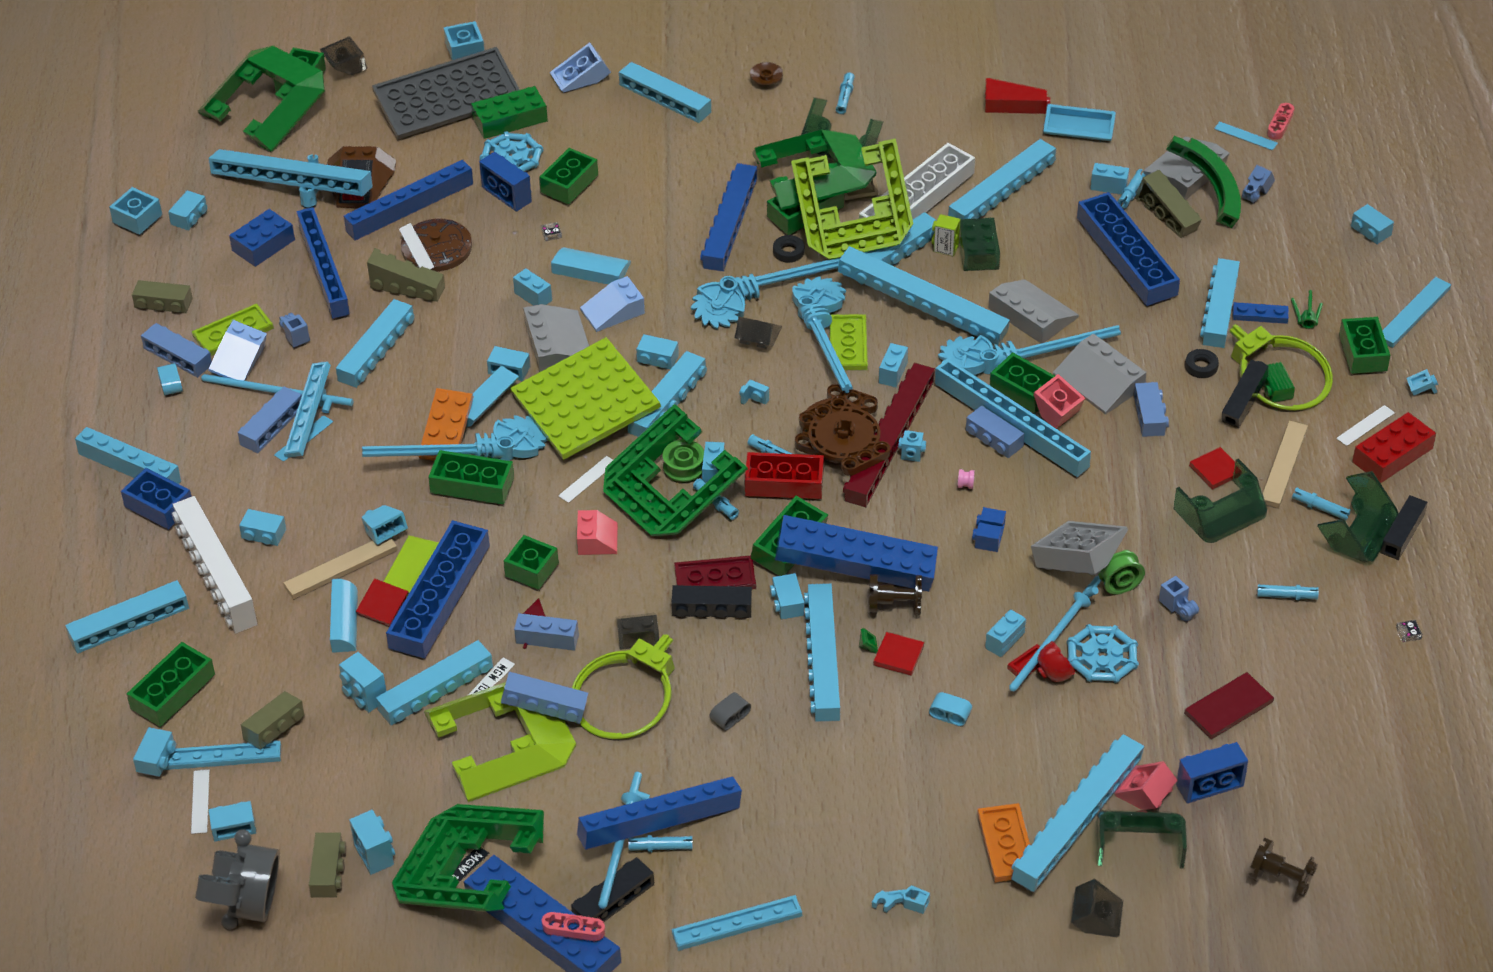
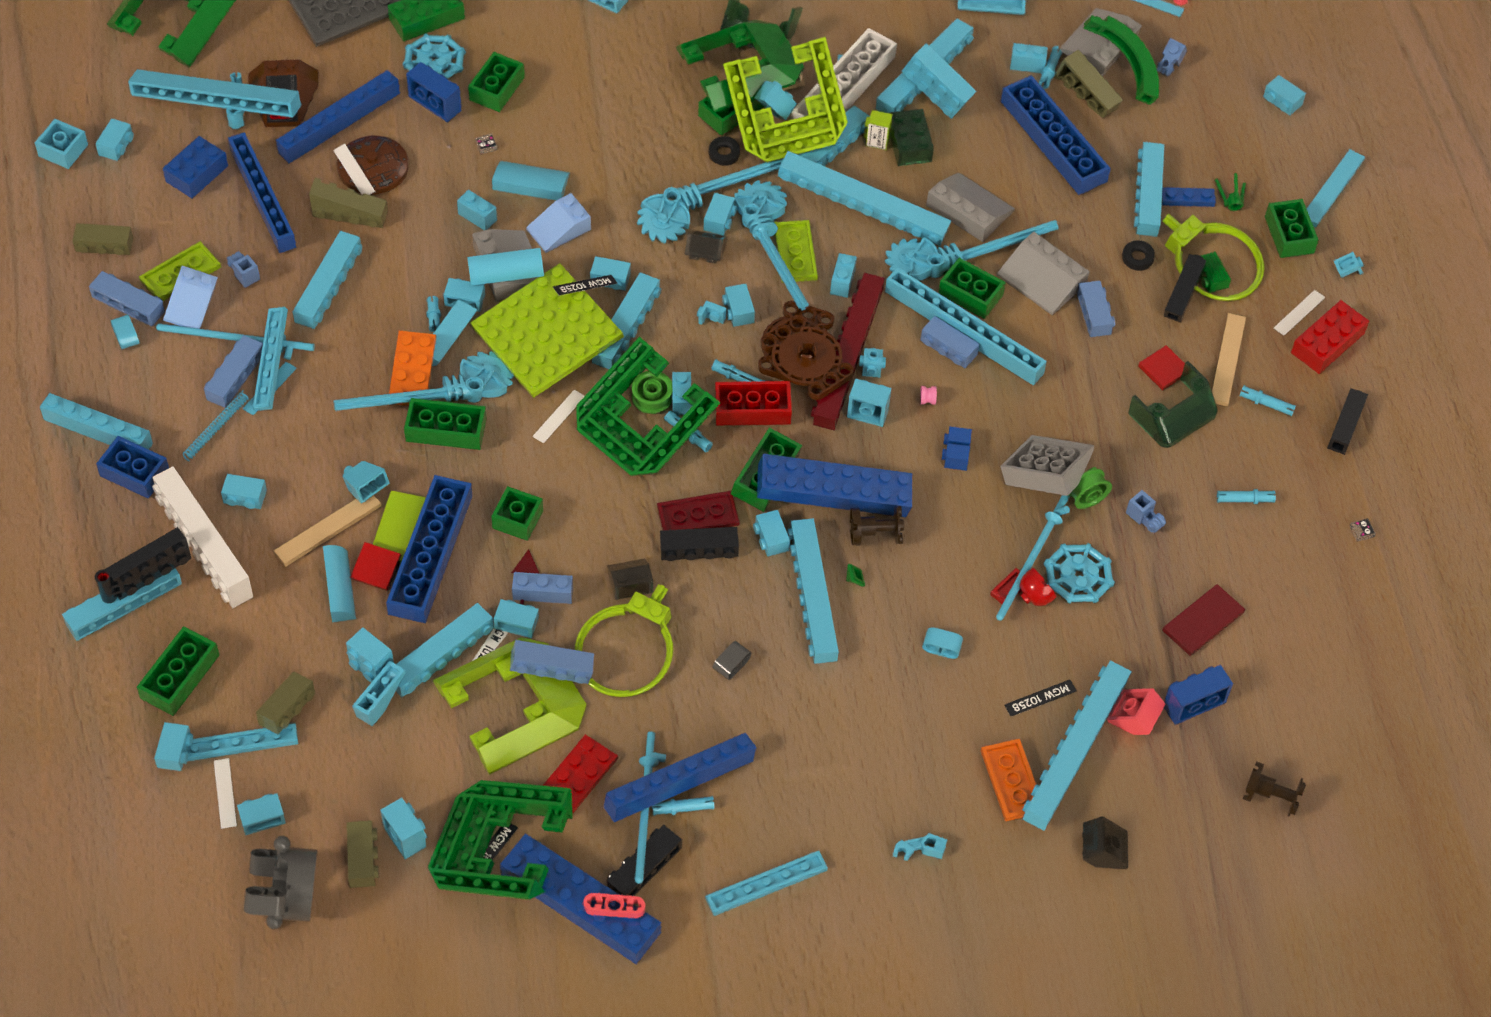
camera: 10 degrees left, 10 degrees up
(149, 583) = (143, 566): none -> black hinge
(239, 473) = (219, 423): none -> medium azure piece
(364, 719) = (378, 694): none -> medium azure slope
(476, 377) = (433, 313): none -> medium azure pin
(515, 658) = (516, 618): none -> medium azure brick
(551, 336) = (505, 266): none -> medium azure brick
(564, 804) = (582, 769): none -> red plate
(596, 533) = (576, 477): coral slope -> none
(628, 357) = (584, 285): none -> black sticker
(729, 217) = (662, 119): blue brick -> none
(775, 304) = (719, 214): none -> medium azure brick
(783, 386) = (739, 305): none -> medium azure brick
(847, 202) = (773, 96): none -> medium azure brick
(898, 653) = (885, 586): red tile -> none
(903, 480) = (869, 402): none -> medium azure brick
(1005, 633) = (985, 559): medium azure brick -> none
(1012, 192) = (938, 81): none -> medium azure brick
(1047, 768) = (1040, 698): none -> black sticker
(1058, 401) = (1007, 306): coral slope -> none
(1143, 822) = (1110, 750): clear green windscreen -> none
(1373, 520) = (1316, 420): clear green windscreen -> none

